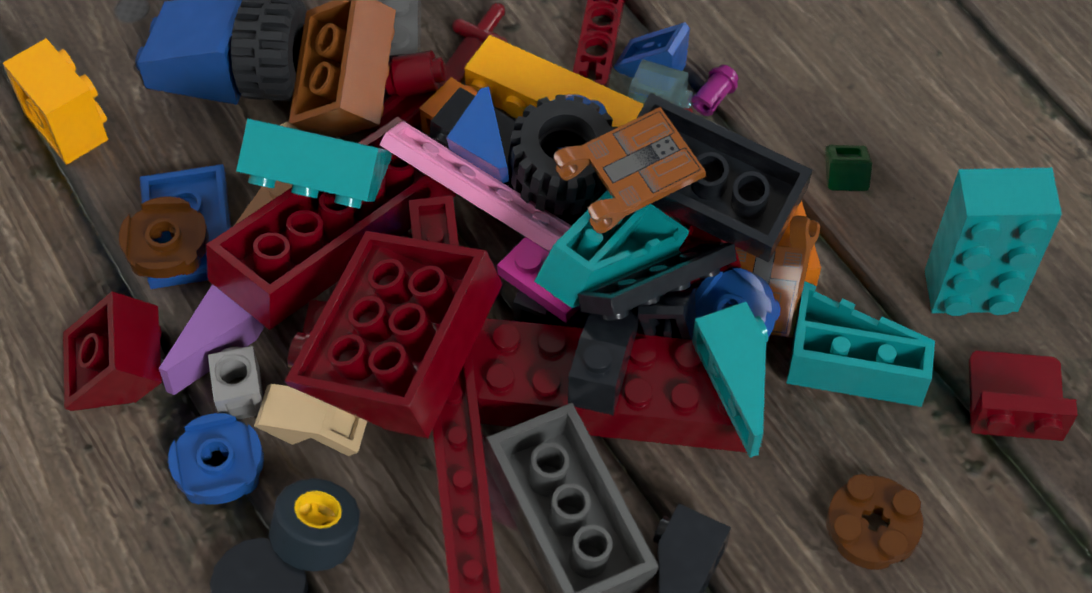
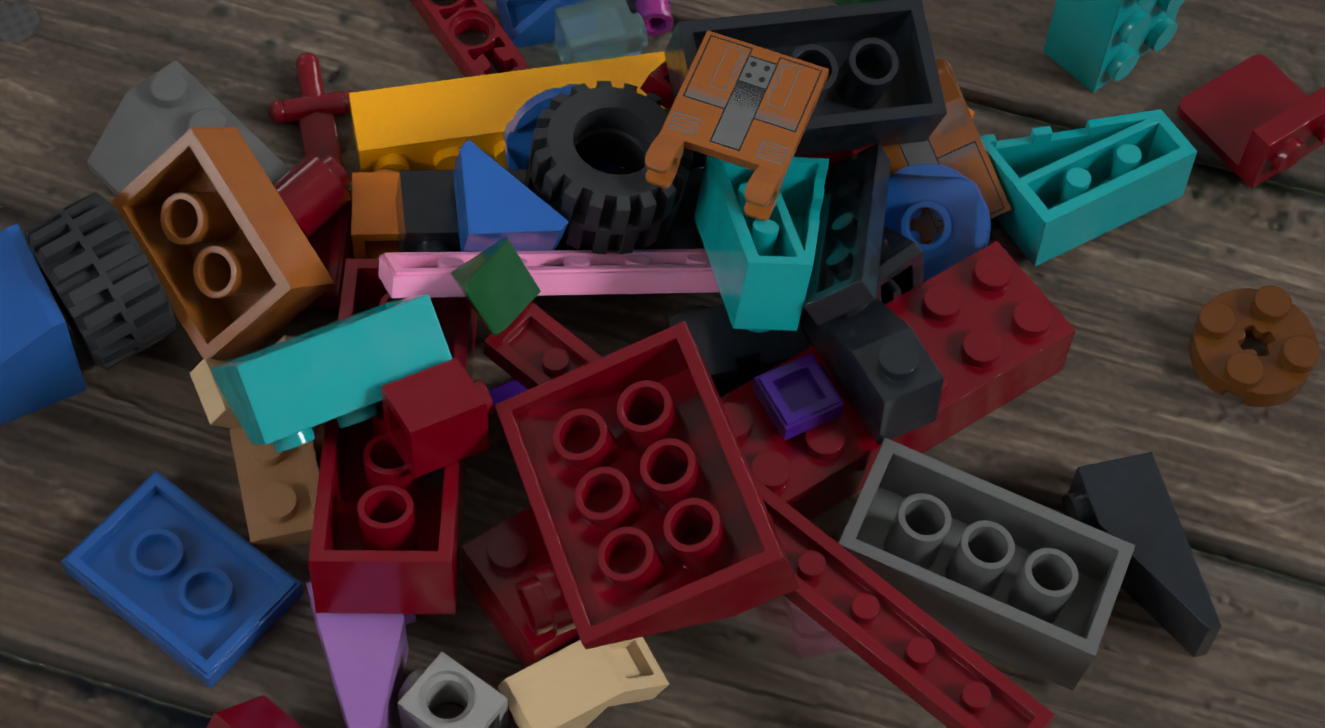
camera: 45 degrees left, 0 degrees up
(166, 259) = (193, 645): reddish brown plate -> none
(334, 217) = (437, 416): none -> dark red brick
(435, 174) = (496, 285): none -> dark green slope
(521, 269) = (708, 325): dark pink plate -> none
(549, 347) = (798, 396): none -> dark purple tile
(735, 356) = (1024, 274): teal slope -> none

